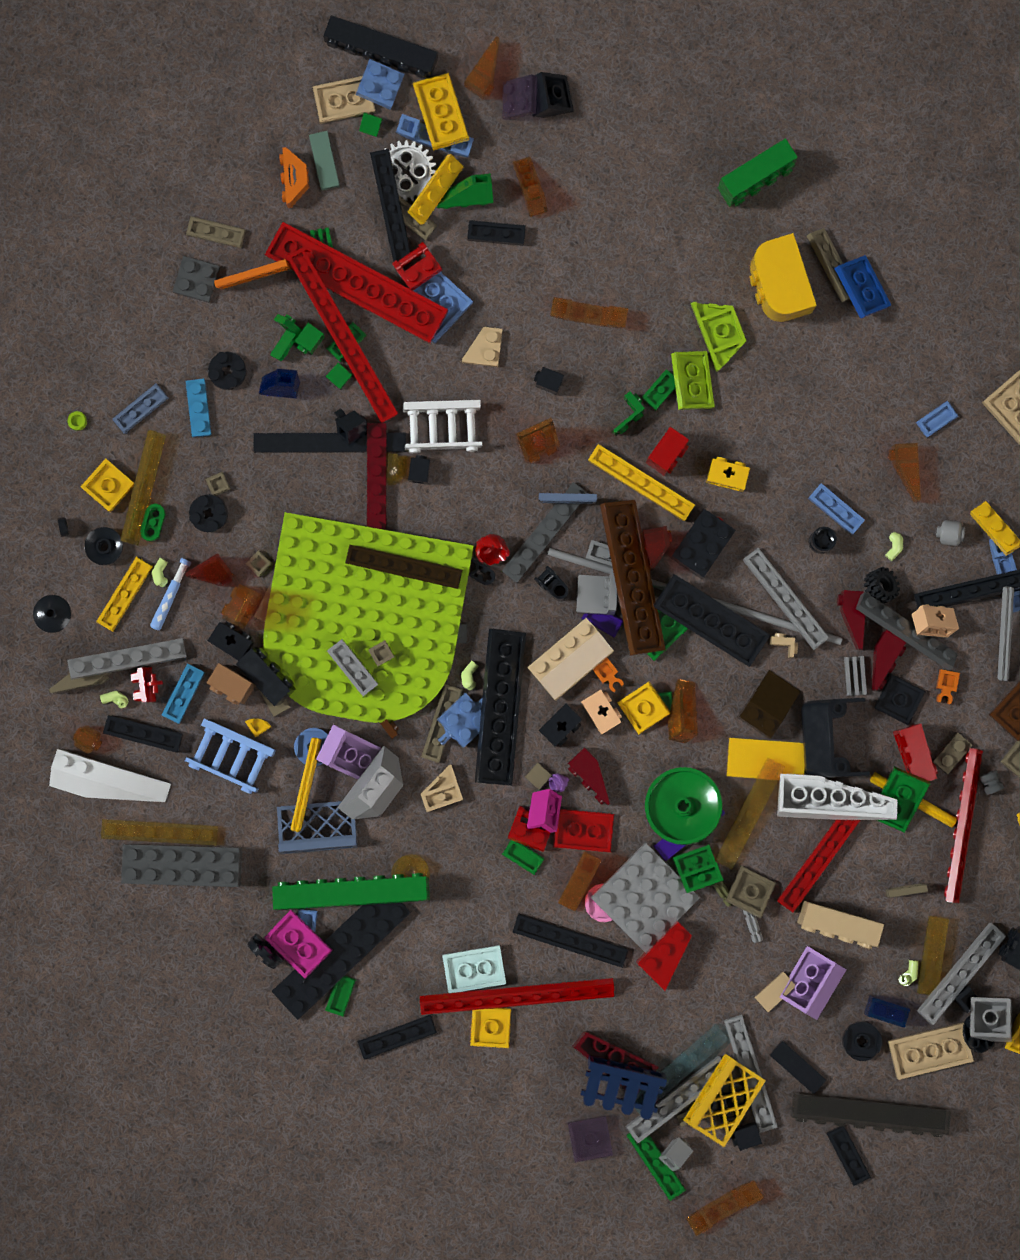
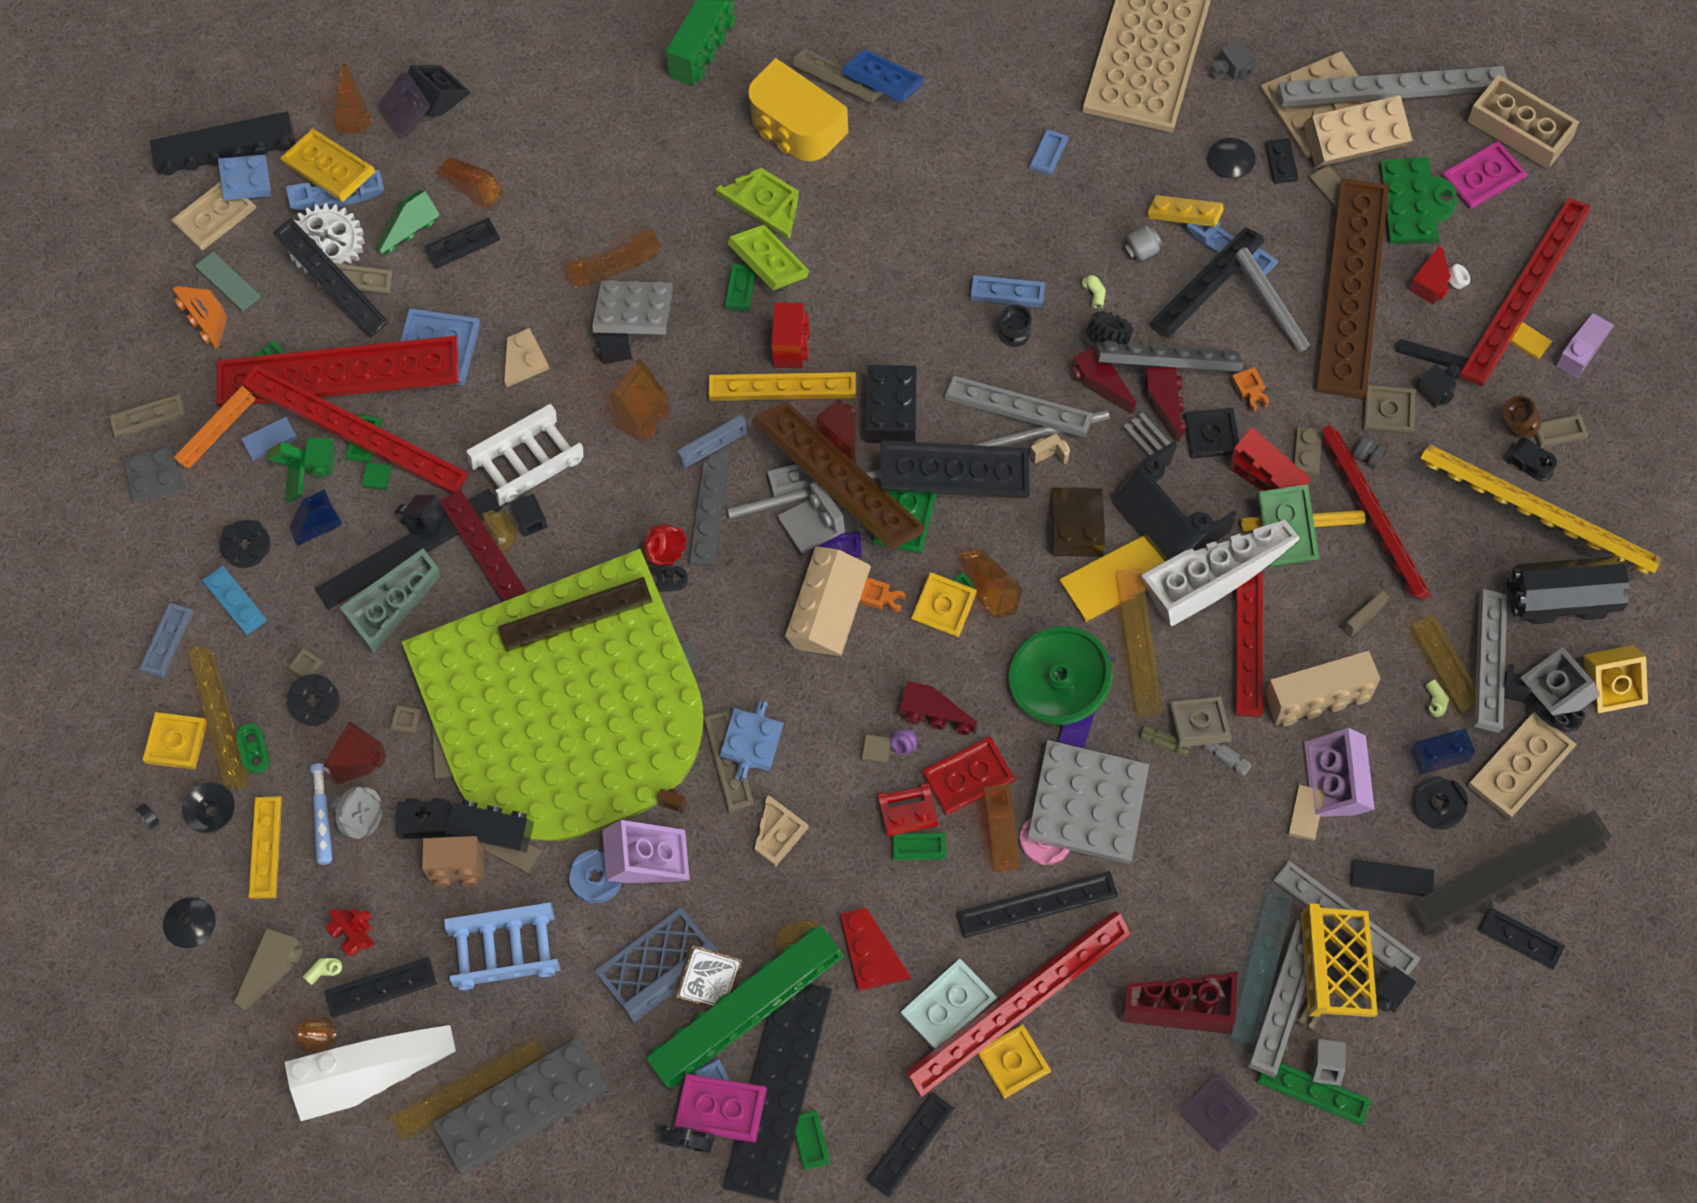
camera: 30 degrees left, 20 degrees down
(77, 421) = (98, 696): lime tile -> none
(126, 659) = (309, 911): light grey plate -> none
(157, 573) = (292, 800): yellowish green arm -> none
(183, 693) = (402, 912): dark azure plate -> none
(191, 611) = (358, 812): none -> light grey tile
(241, 606) = (413, 768): clear orange slope -> none
(257, 726) = (515, 895): yellow tile -> none
(285, 301) = (267, 437): none -> medium blue tile
(291, 476) = (390, 599): none -> sand green wedge
(306, 783) = (613, 919): yellow axle -> none
(340, 859) = (707, 976): none -> tile
(352, 667) = (585, 755): light grey plate -> none
(370, 124) = (258, 219): green tile -> none
(374, 788) = (696, 876): light grey wedge -> none
(381, 653) = (609, 719): dark tan plate -> none
(419, 272) = (402, 321): red plate -> none
(435, 189) = (368, 236): yellow plate -> none
(449, 904) = (870, 952): none -> red wing
(467, 677) = (724, 693): yellowish green arm -> none
(500, 707) = (784, 700): black plate -> none
(544, 810) = (907, 775): dark pink panel -> none
(550, 731) = (865, 664): black brick -> none
(552, 583) = (751, 540): black piece -> none
(578, 360) = (632, 307): none -> light grey plate
(592, 705) = (907, 646): light nougat brick -> none
(634, 402) = (727, 317): green bracket -> none
(635, 1076) = (1200, 1021): dark blue fence -> none
(665, 955) = (1155, 848): red wedge -> none
(697, 869) = (1124, 733): green slope -> none
(724, 1206) = (1429, 1086): clear orange slope -> none
(735, 482) = (881, 326): yellow brick -> none
(906, 464) = (1052, 210): clear orange slope -> none
(935, 621) = (1190, 329): light nougat brick -> none

